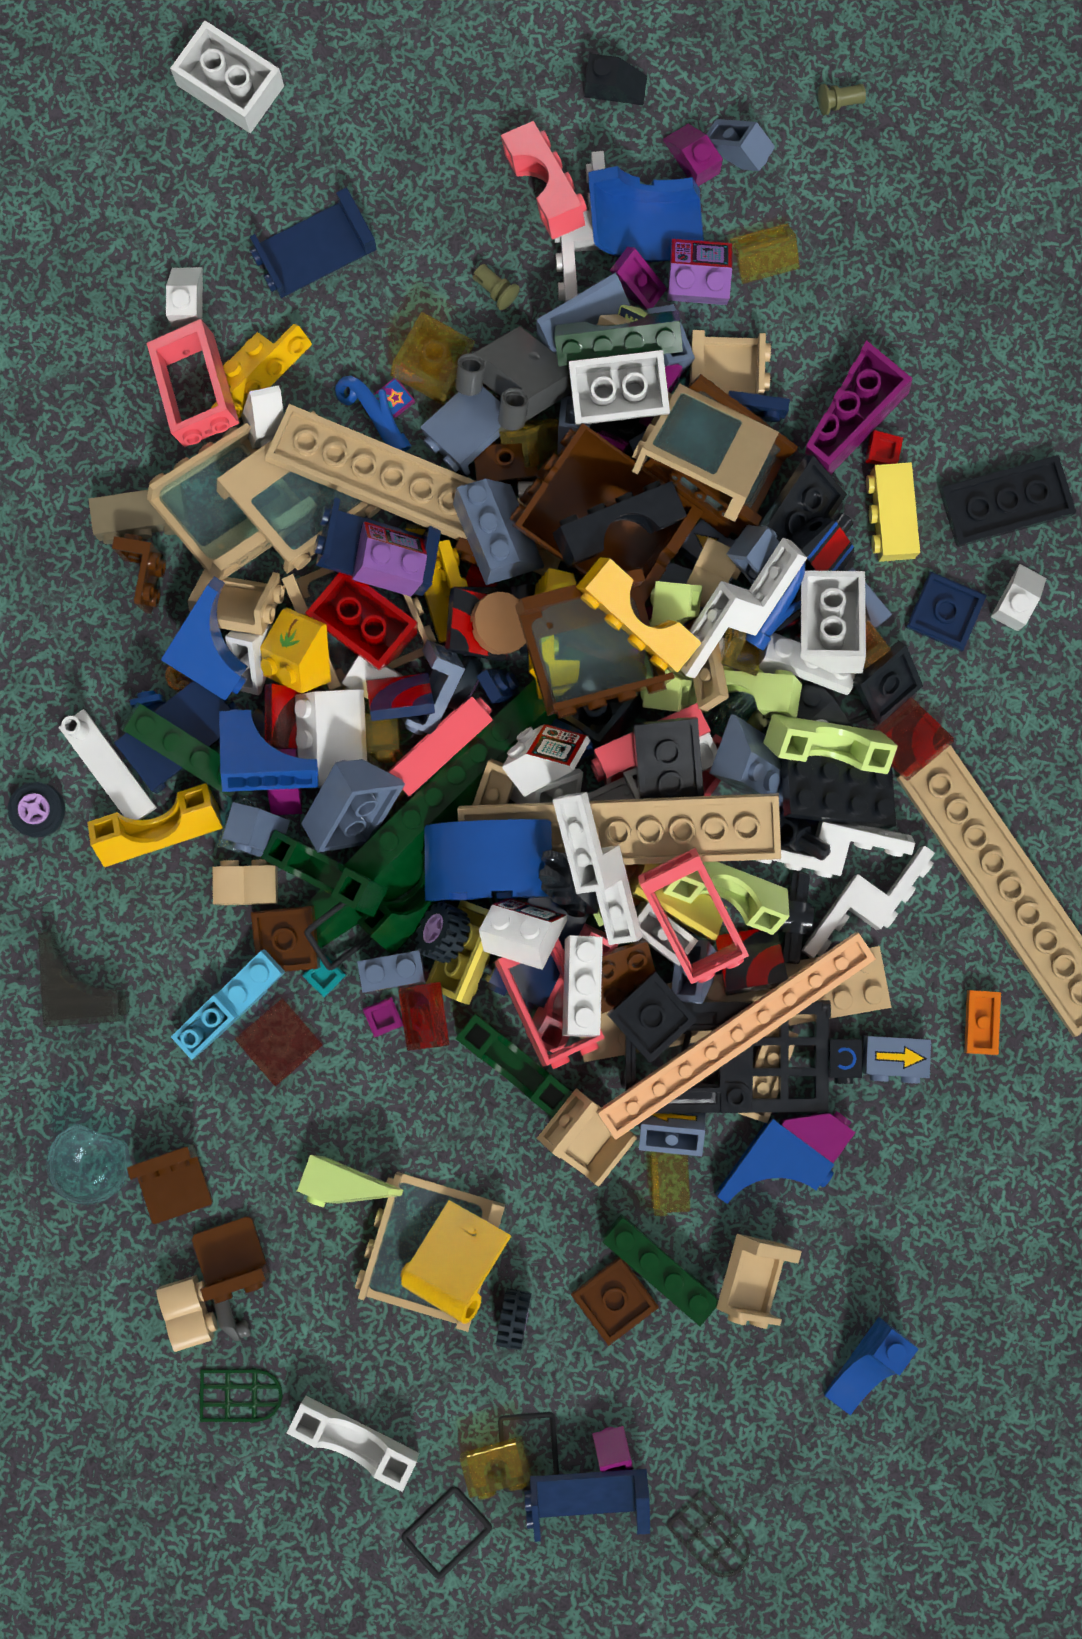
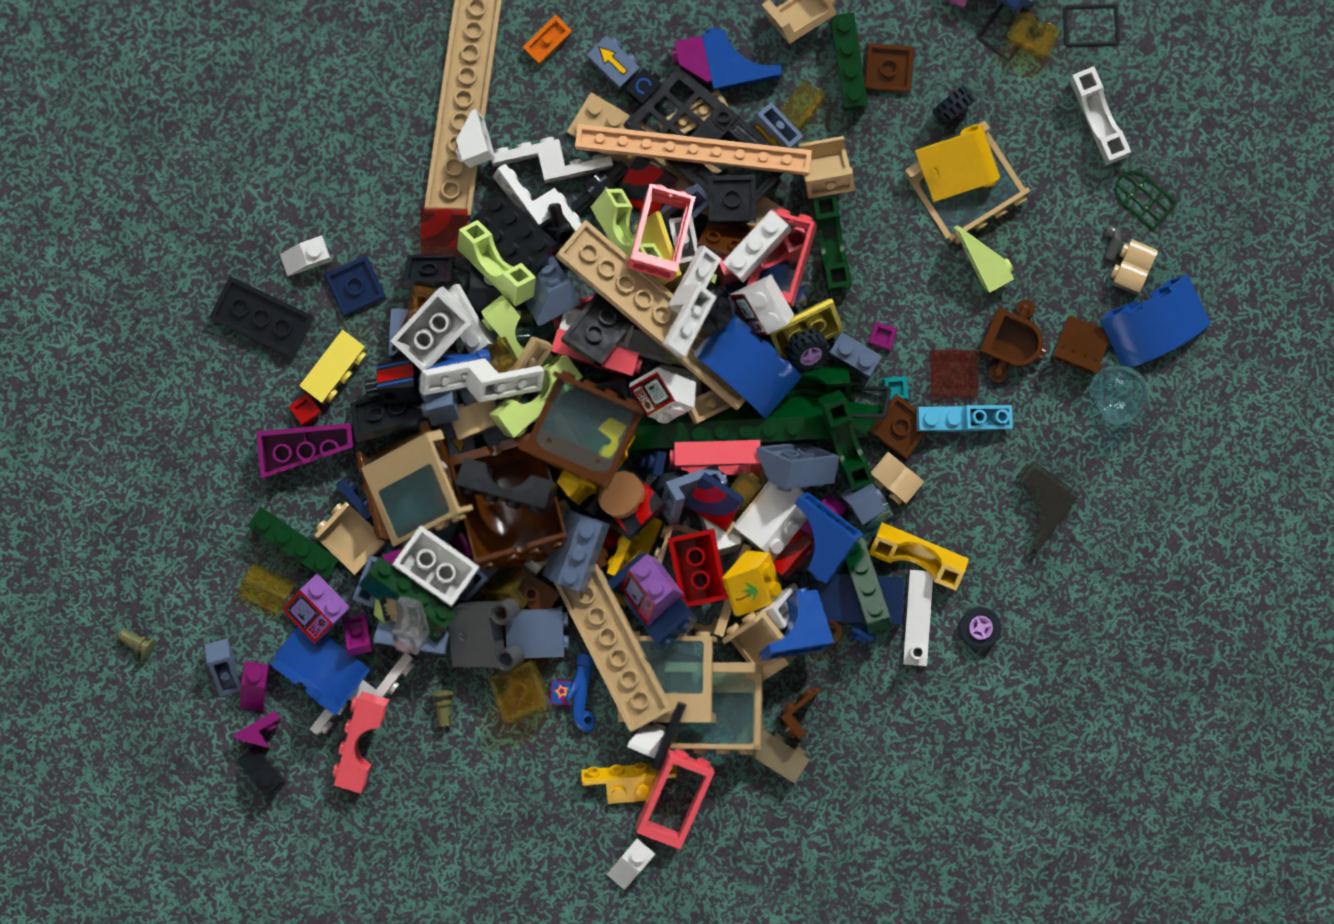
camera: 135 degrees left, 0 degrees up
(111, 1272) = (1157, 324): none -> blue panel
(230, 1259) = (1084, 274): reddish brown bracket -> none
(246, 1127) = (1012, 340): none -> reddish brown piece
(248, 433) = (669, 735): none -> black bar
(314, 246) = (529, 828): dark blue panel -> none
(423, 1016) = (859, 313): clear red tile -> none
(589, 308) = (411, 626): none -> clear arch
(609, 590) = (540, 397): yellow arch -> none
(650, 108) = (253, 732): none -> magenta slope
(802, 308) = (294, 543): none -> dark green arch
(962, 851) = (474, 141): none -> white slope

